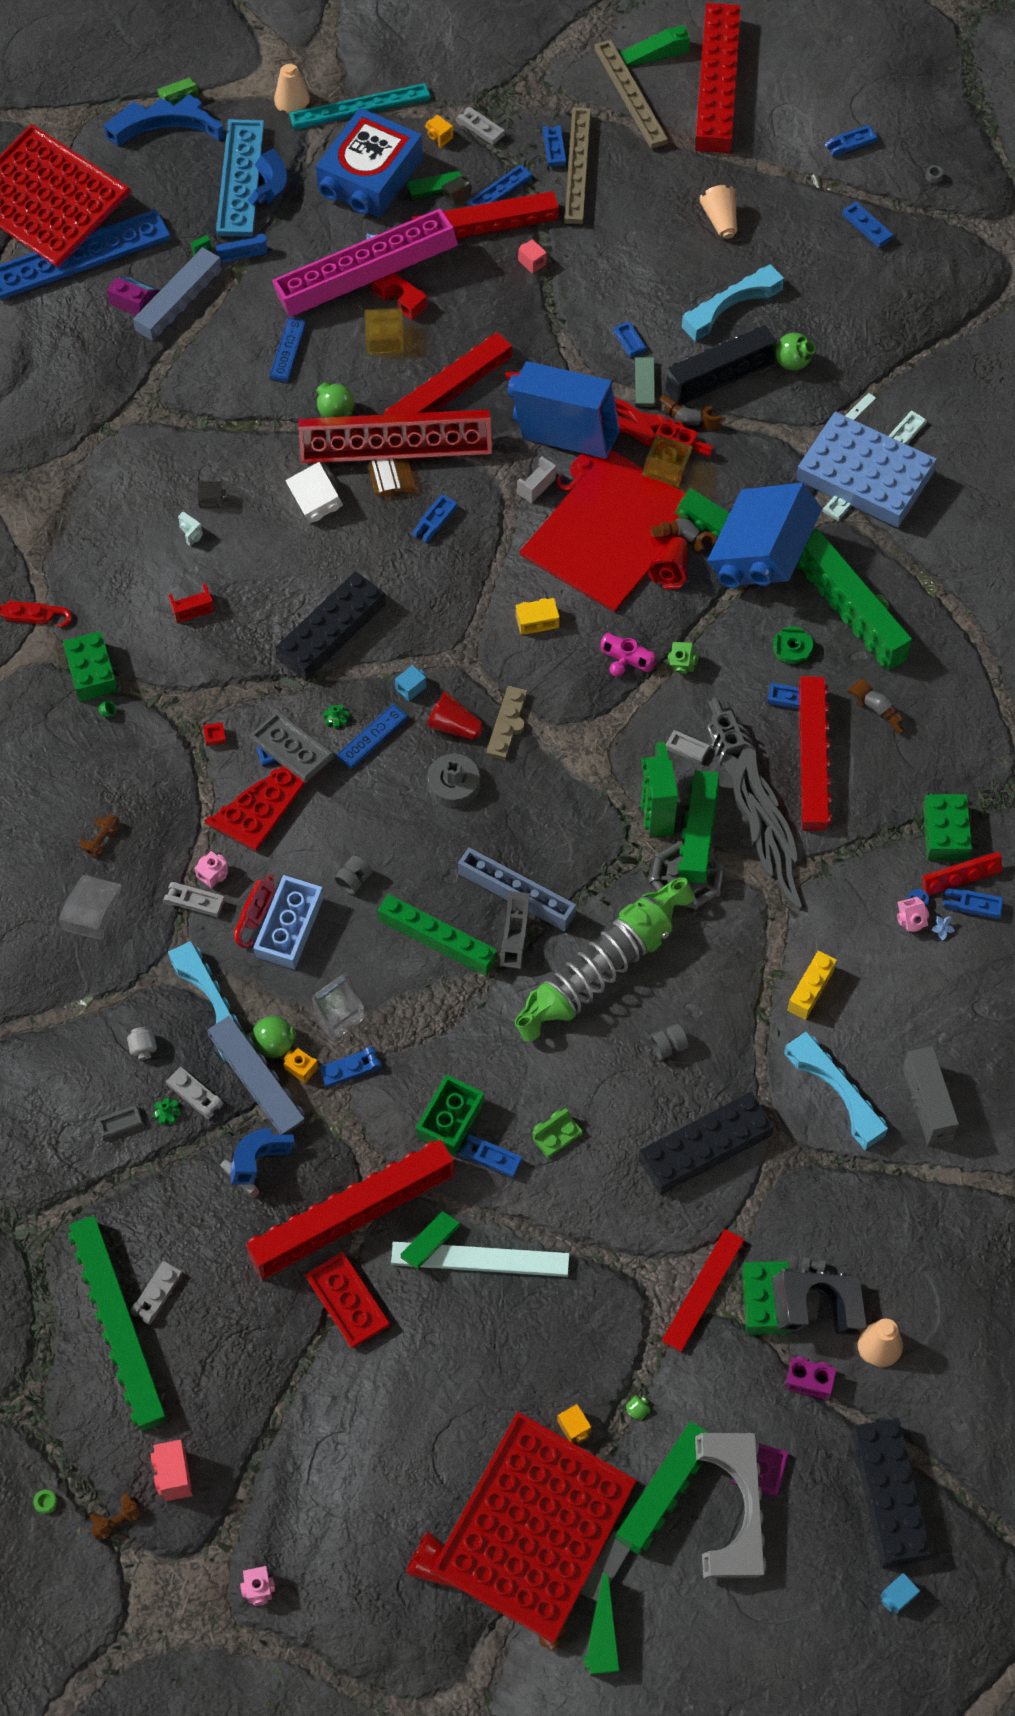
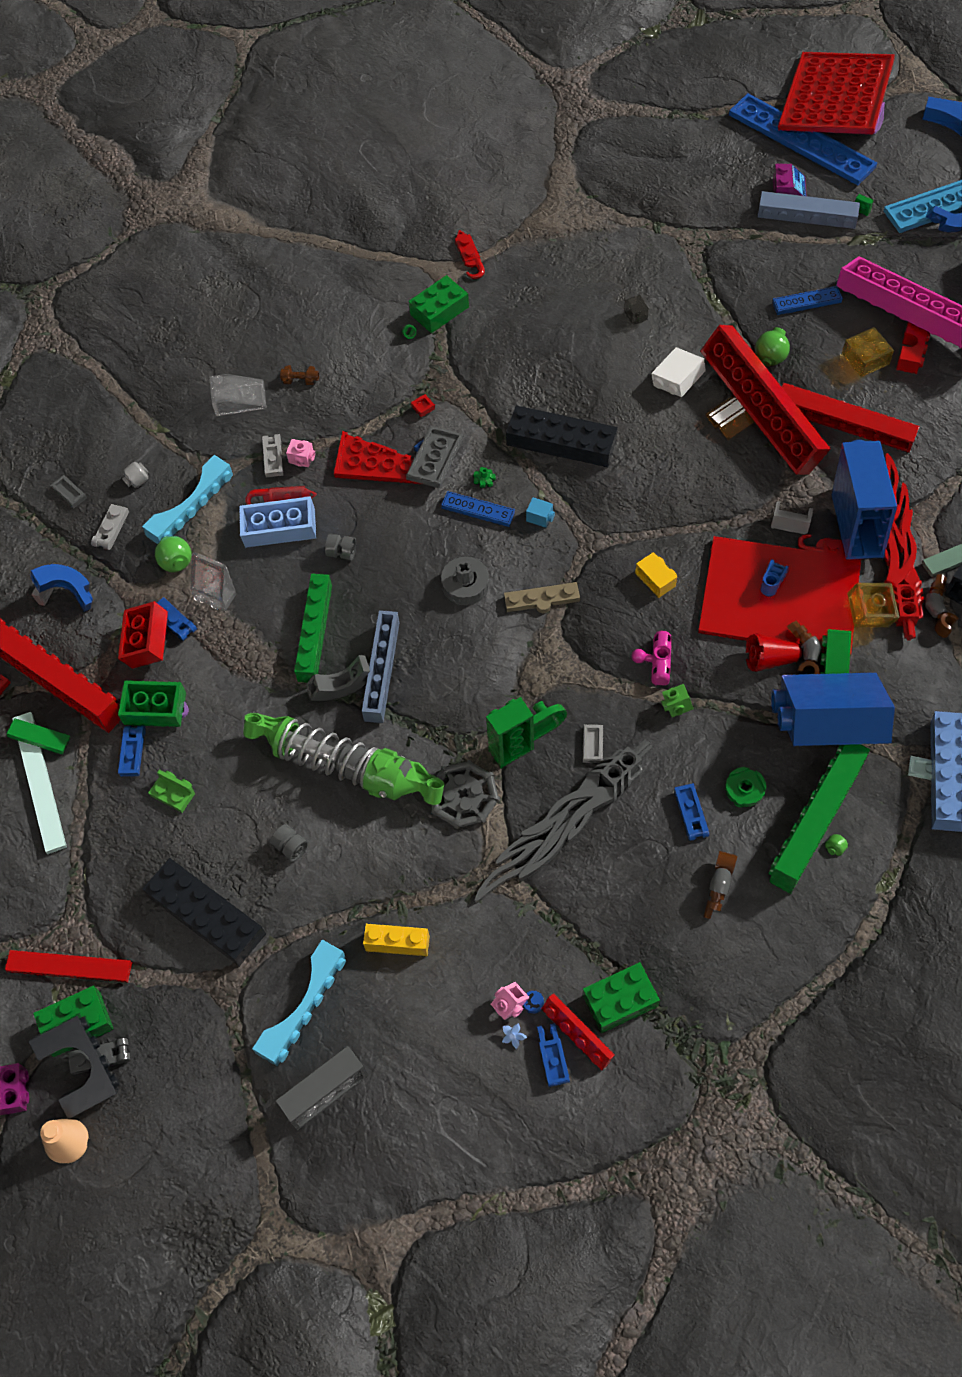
camera: 70 degrees right, 0 degrees up
(166, 1111) = (88, 516): green plant -> none
(190, 527) = (597, 313): light aqua bracket -> none
(192, 606) = (529, 342): red panel -> none
(242, 248) = (880, 230): blue plate -> none
(256, 1076) = (130, 555): sand blue brick -> none
(302, 1071) = (159, 584): light orange brick -> none
(364, 1095) = (143, 635): none -> red brick
(435, 517) = (709, 463): blue hinge -> none
(454, 718) = (520, 553): red cone -> none
(595, 523) = (775, 576): none -> blue piece
(700, 827) = (509, 781): green brick -> none
(813, 753) = (637, 847): red brick -> none

